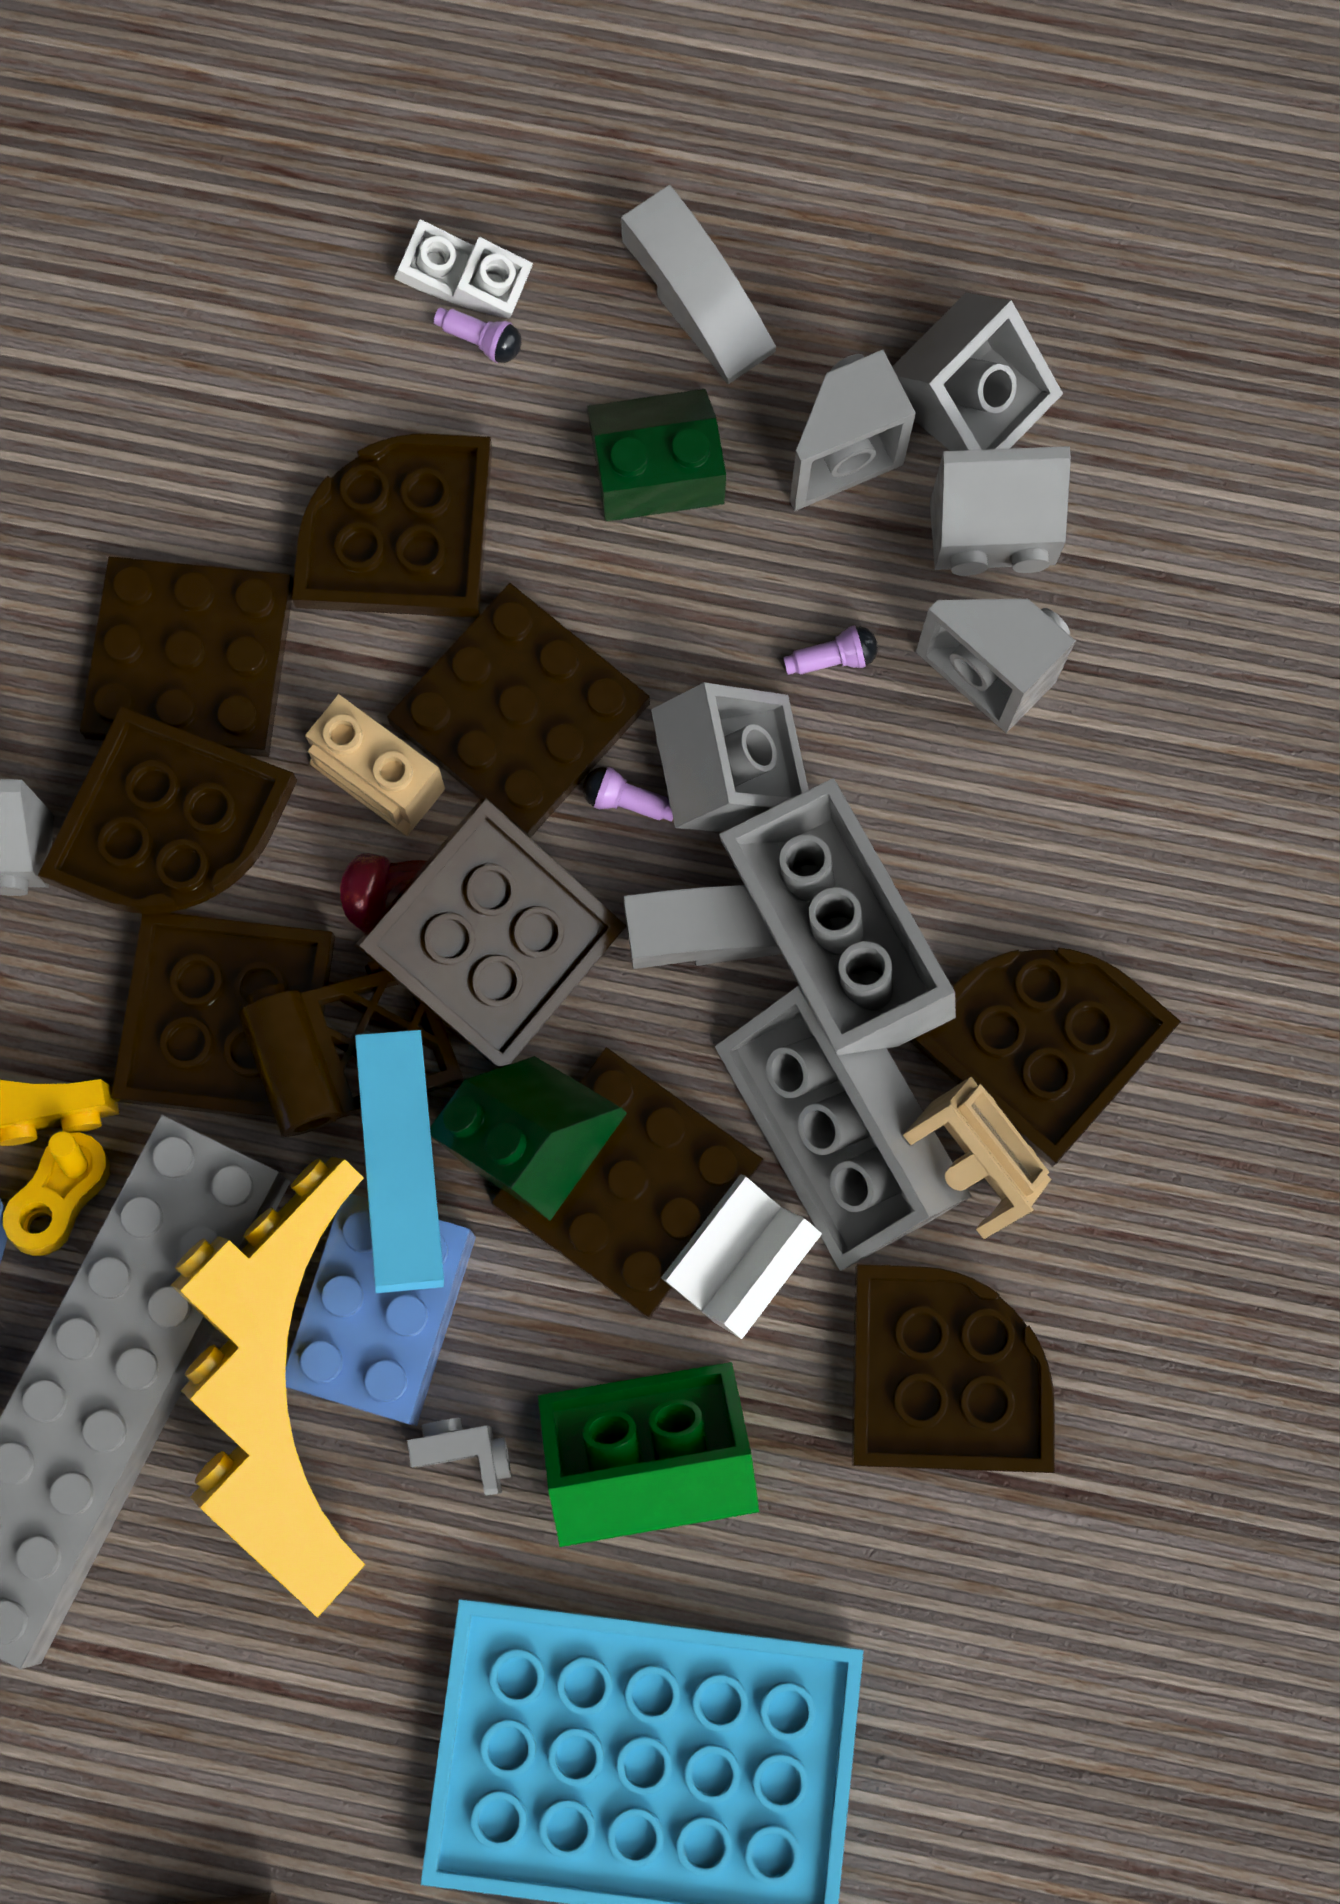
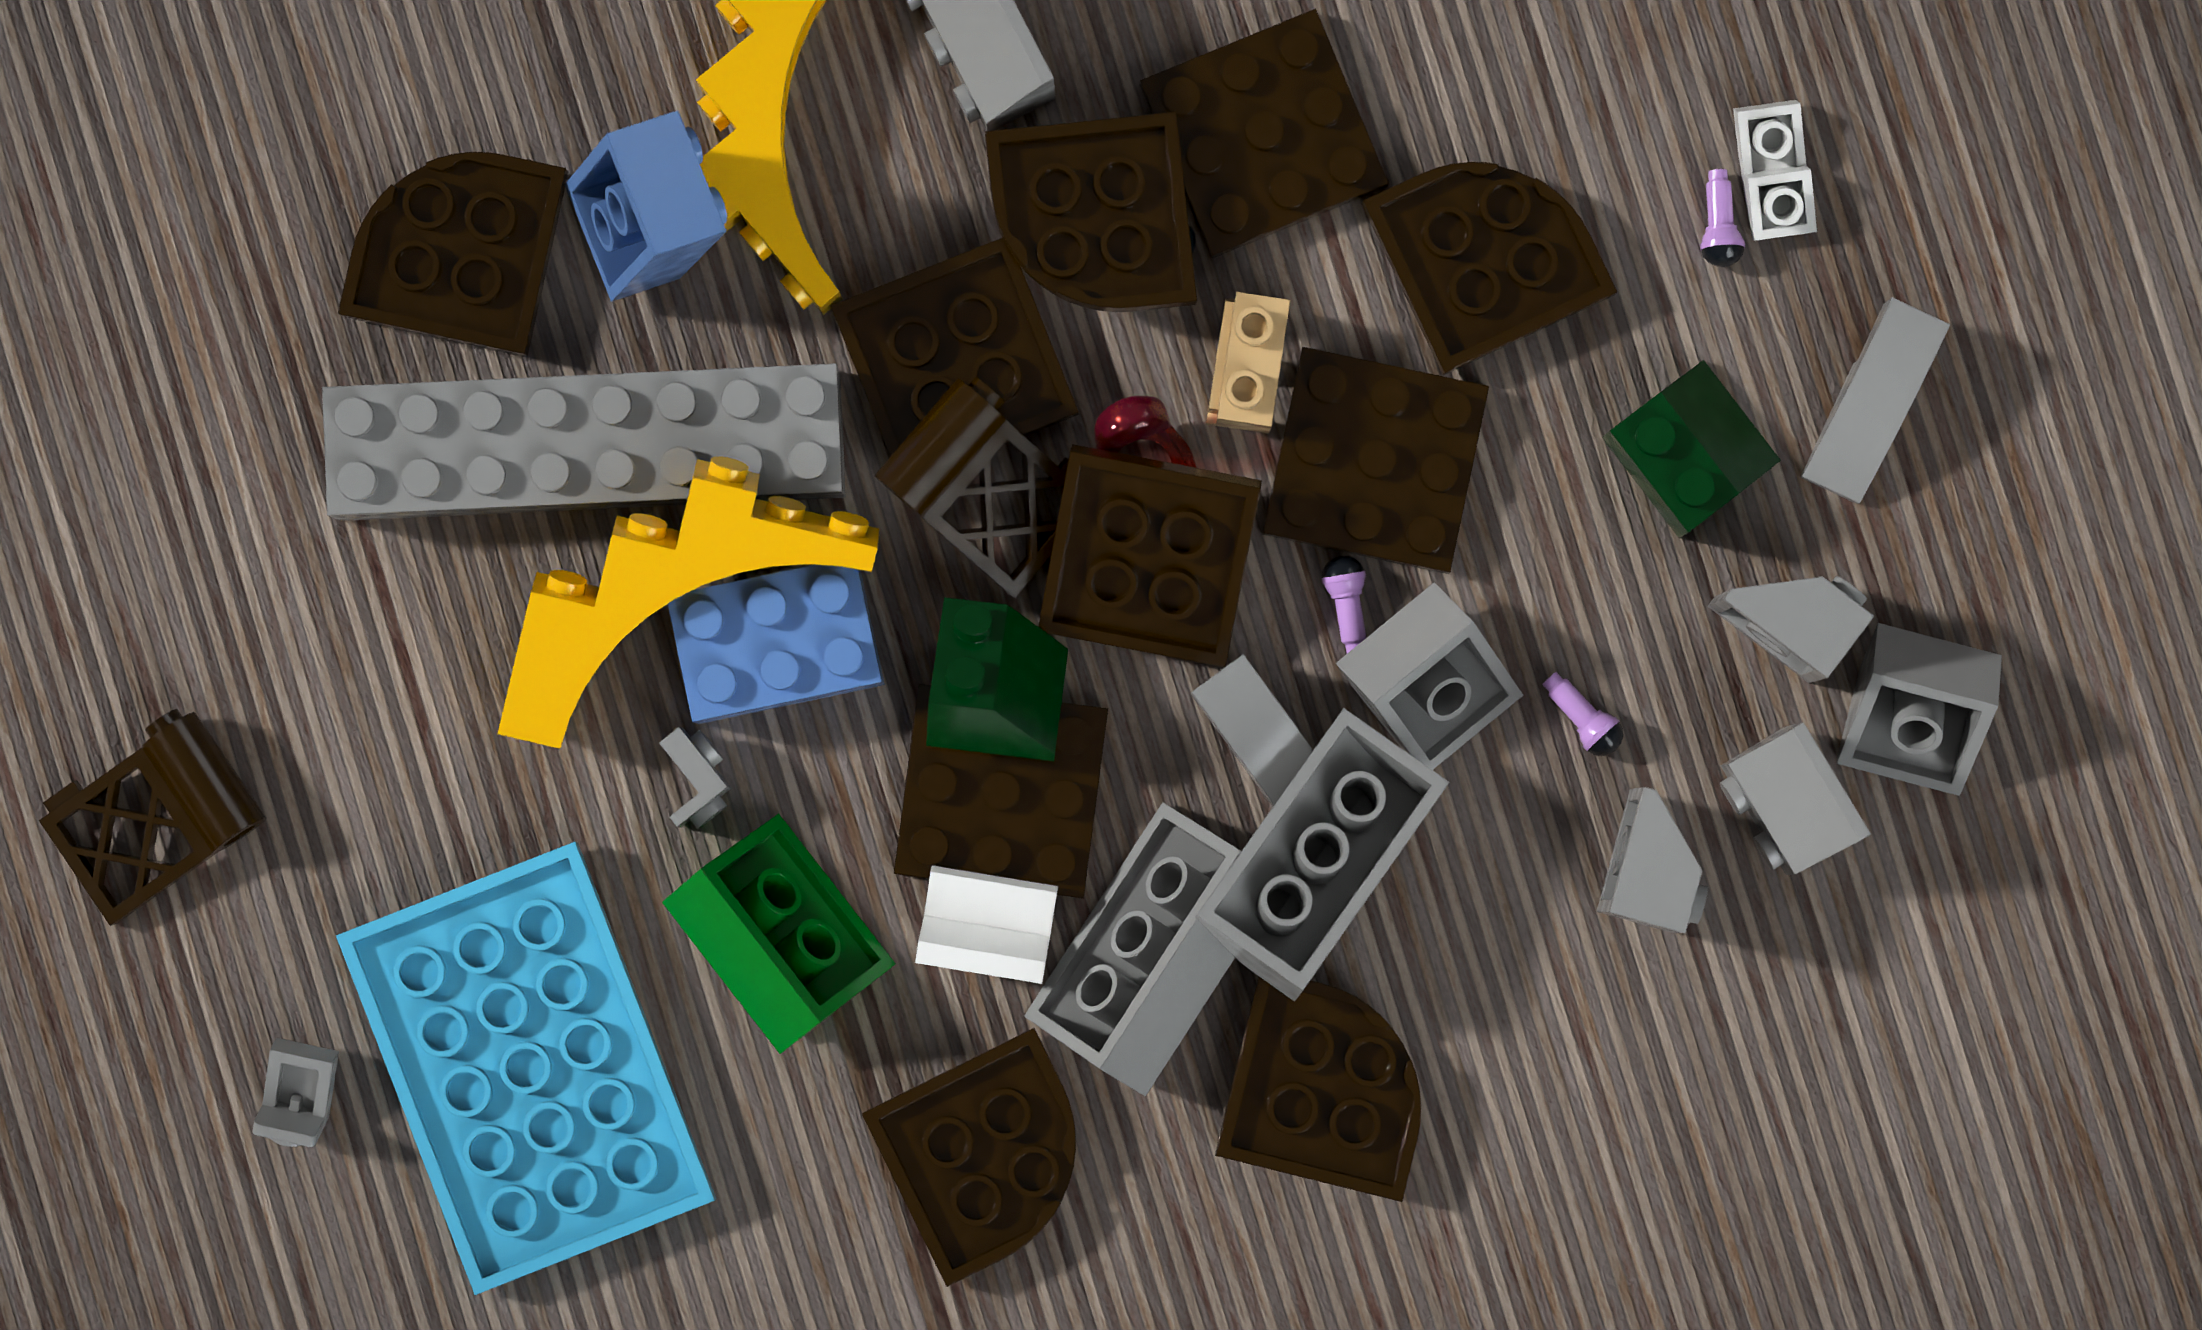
camera: 60 degrees right, 10 degrees up
(66, 1179) = (740, 306): yellow piece -> none
(399, 1162) = (906, 589): medium azure tile -> none
(991, 1152) = (1193, 1092): tan window -> none

